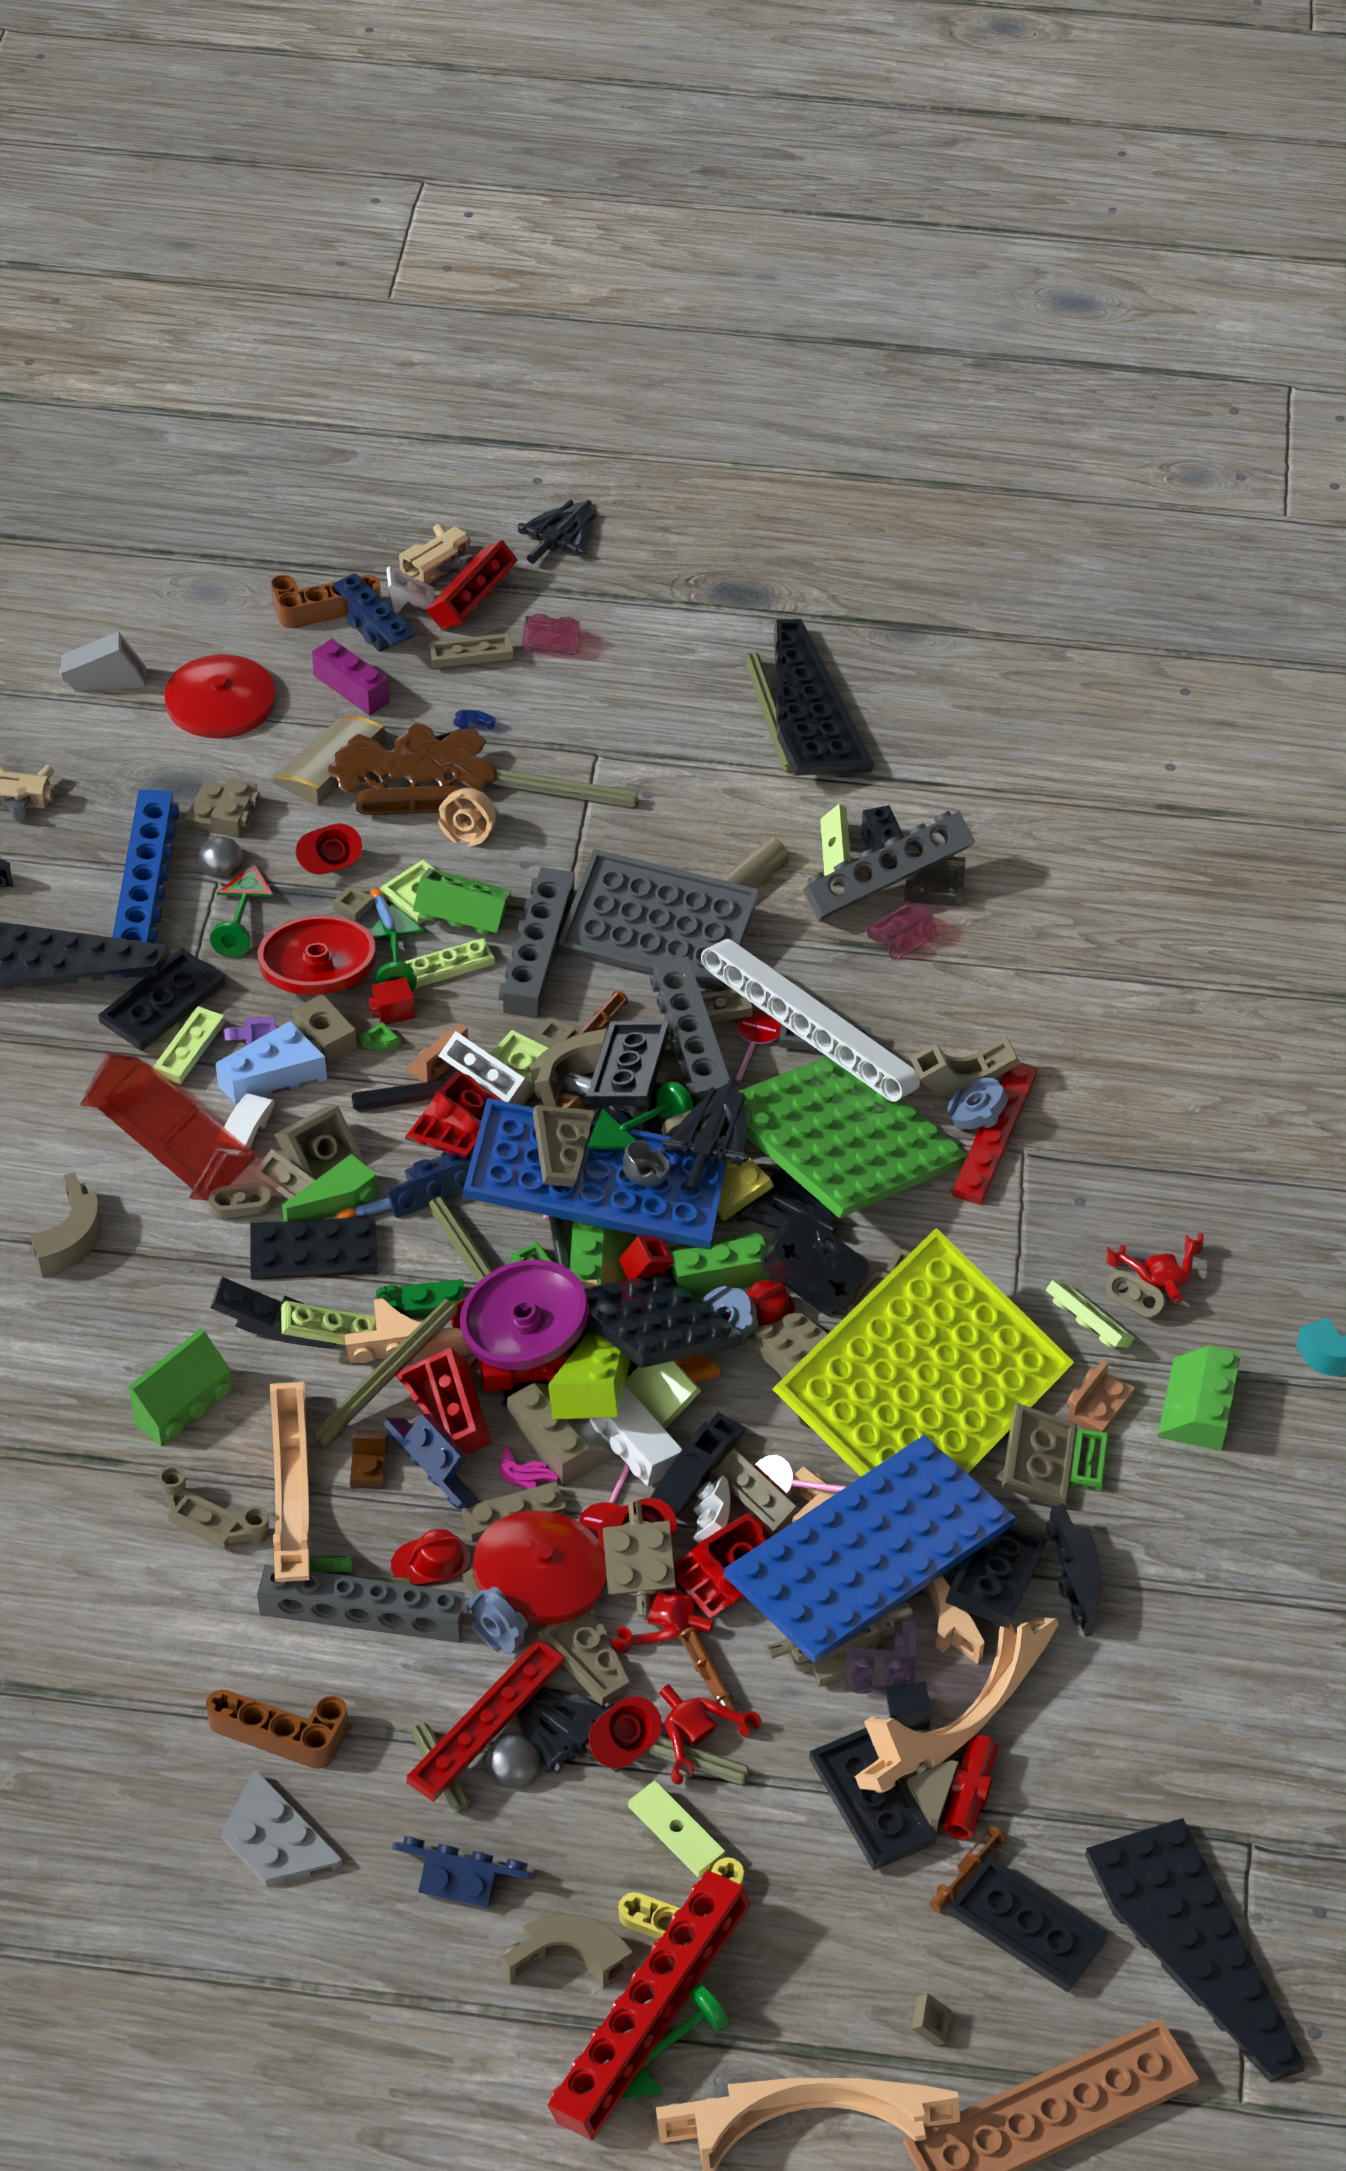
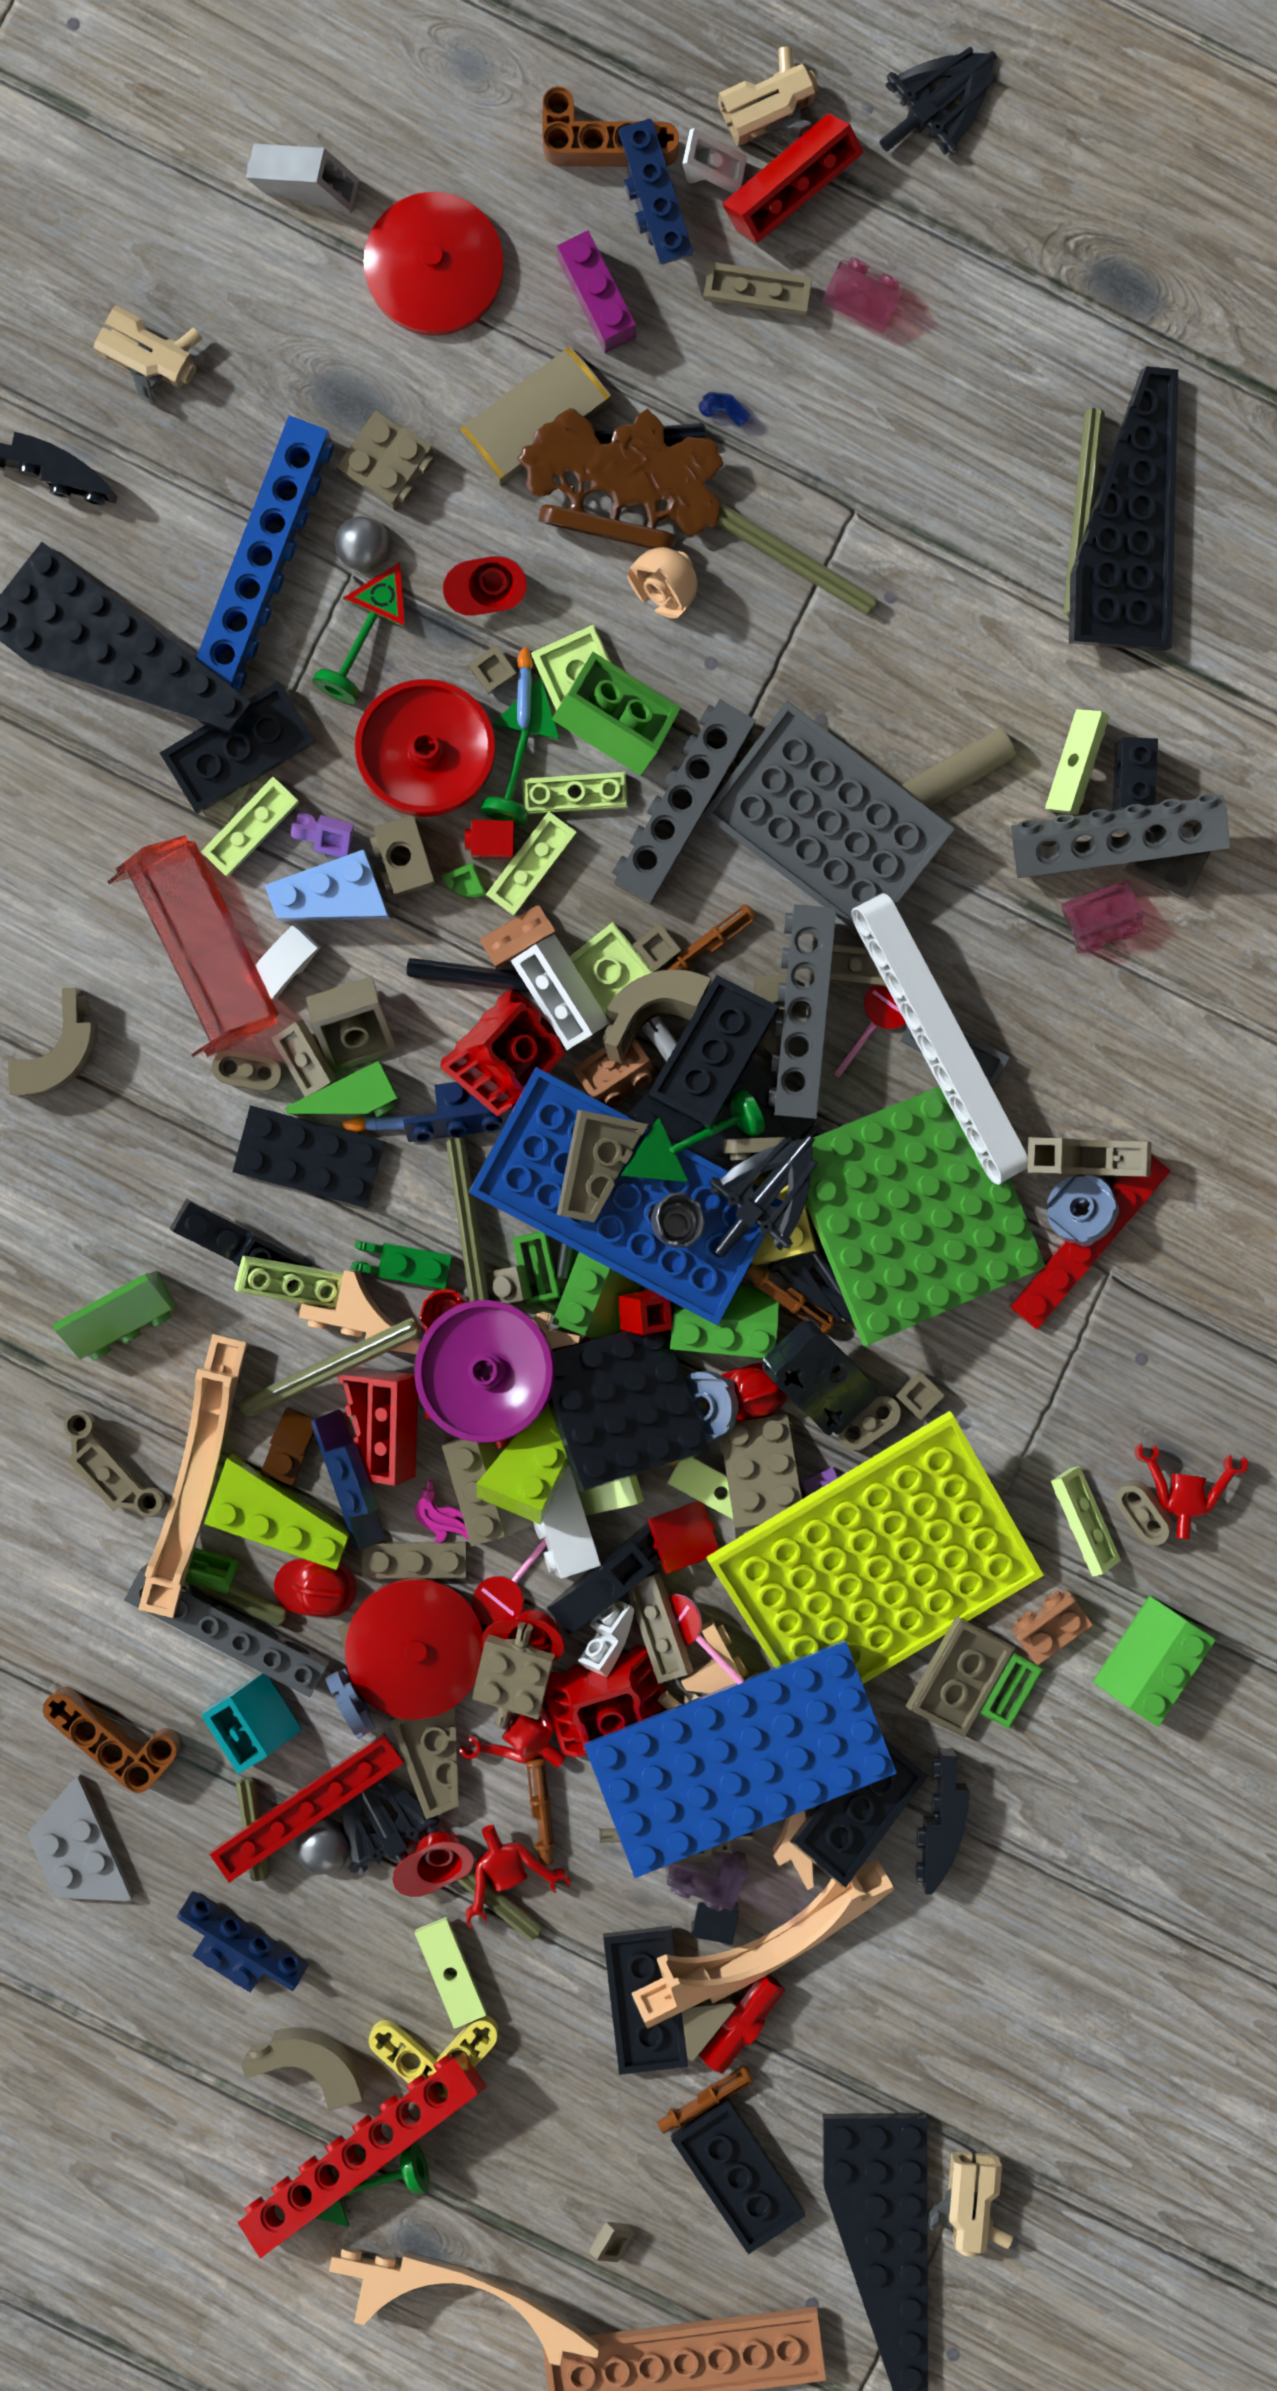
camera: 20 degrees right, 40 degrees up
(375, 1504) = (276, 1517): none -> lime wedge
(406, 1671) = (251, 1722): none -> teal slope
(430, 1010) = (531, 863): none -> yellowish green plate
(748, 1221) = (789, 1298): none -> dark orange piece
(748, 1378) = (700, 1483): none -> yellowish green tile
(748, 1420) = (683, 1536): none -> red piece
(1259, 1876) = (969, 2203): none -> tan piece

